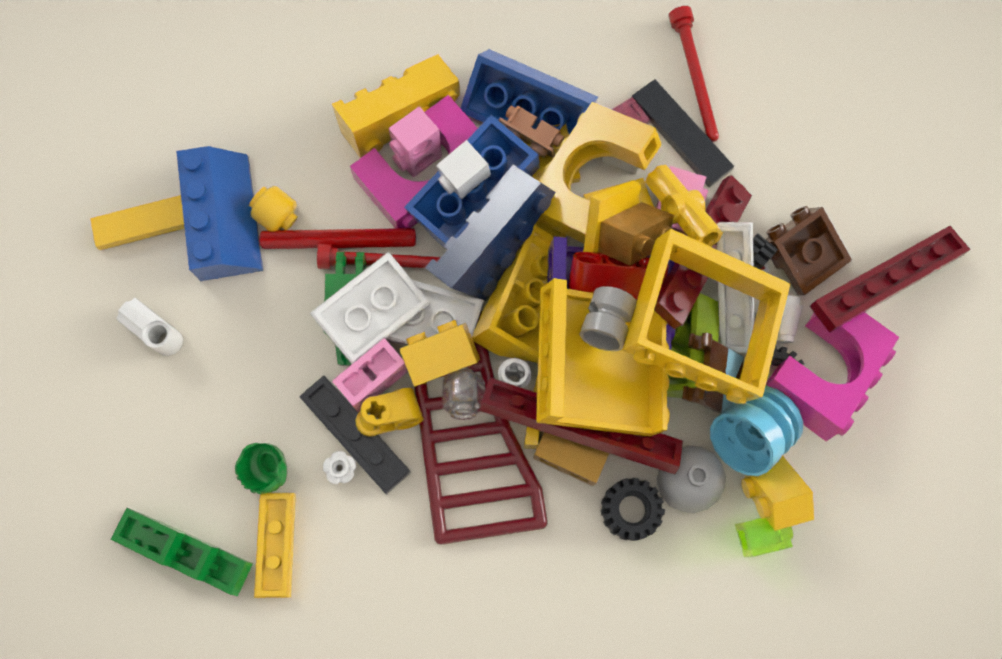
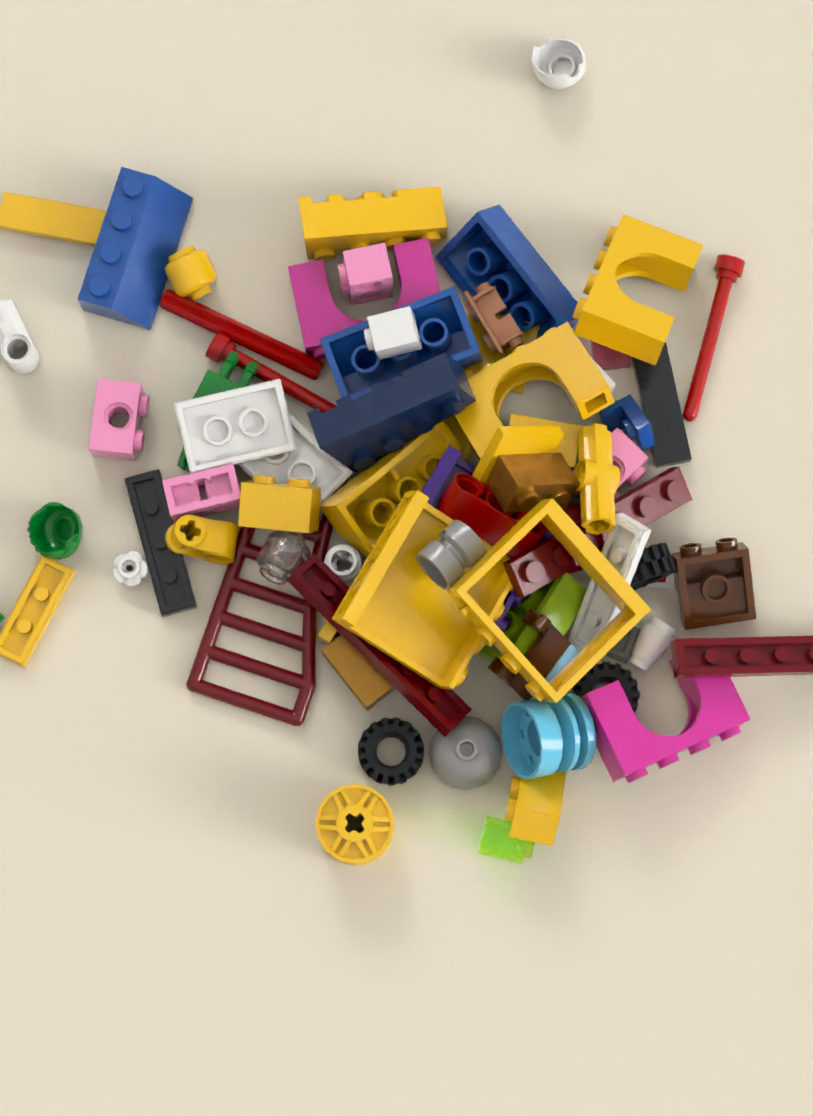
camera: 30 degrees right, 5 degrees up
(257, 338) = (112, 399): none -> bright pink brick
(624, 600) = (355, 847): none -> yellow wheel
(625, 79) = (612, 316): none -> yellow arch
(678, 156) = (630, 418): none -> blue bracket

